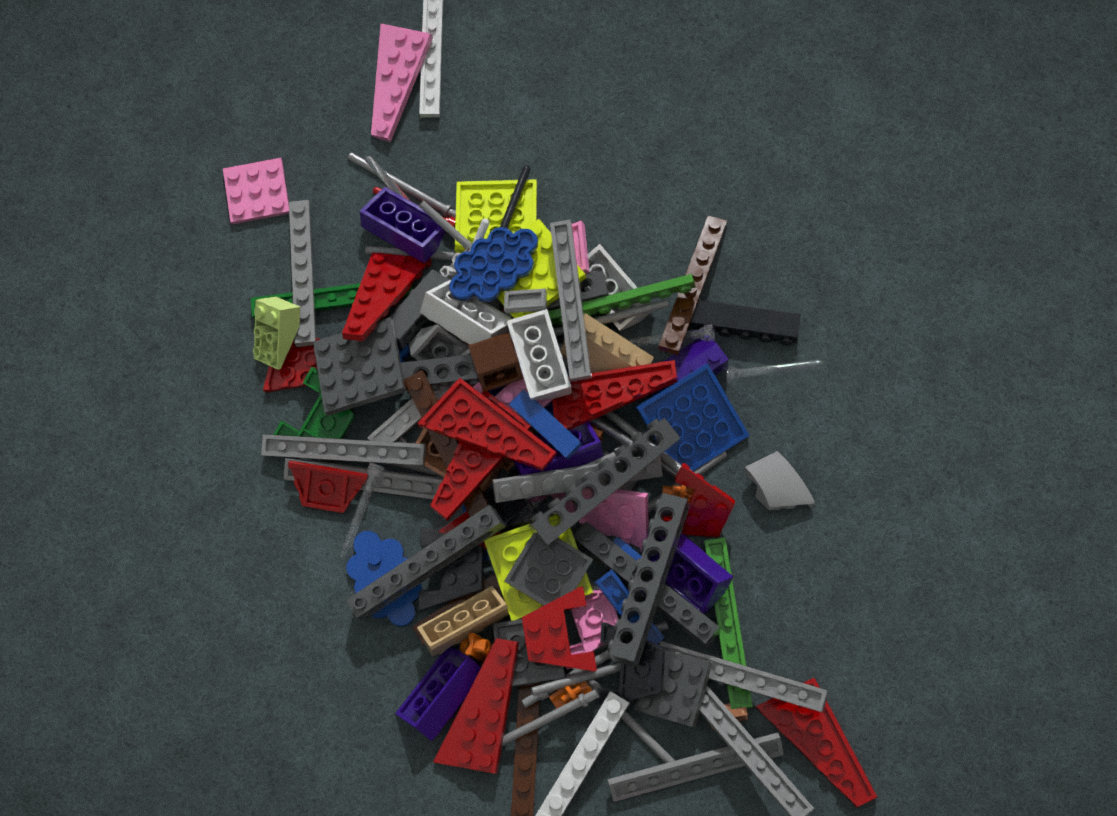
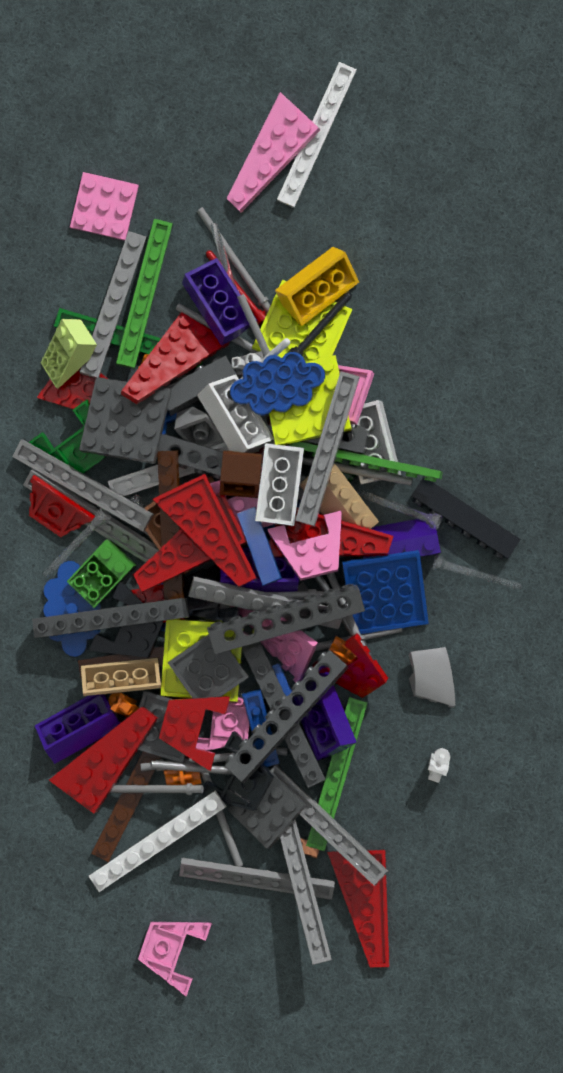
camera: 20 degrees right, 15 degrees up
(328, 250) = (144, 294): none -> bright green plate
(398, 527) = (101, 573): none -> bright green slope
(493, 170) = (317, 285): none -> yellow slope
(525, 300) = (289, 430): light grey tile -> none
(601, 411) = (314, 555): none -> bright pink wing
(687, 302) = (448, 465): reddish brown plate -> none
(827, 564) = (438, 764): none -> white hips

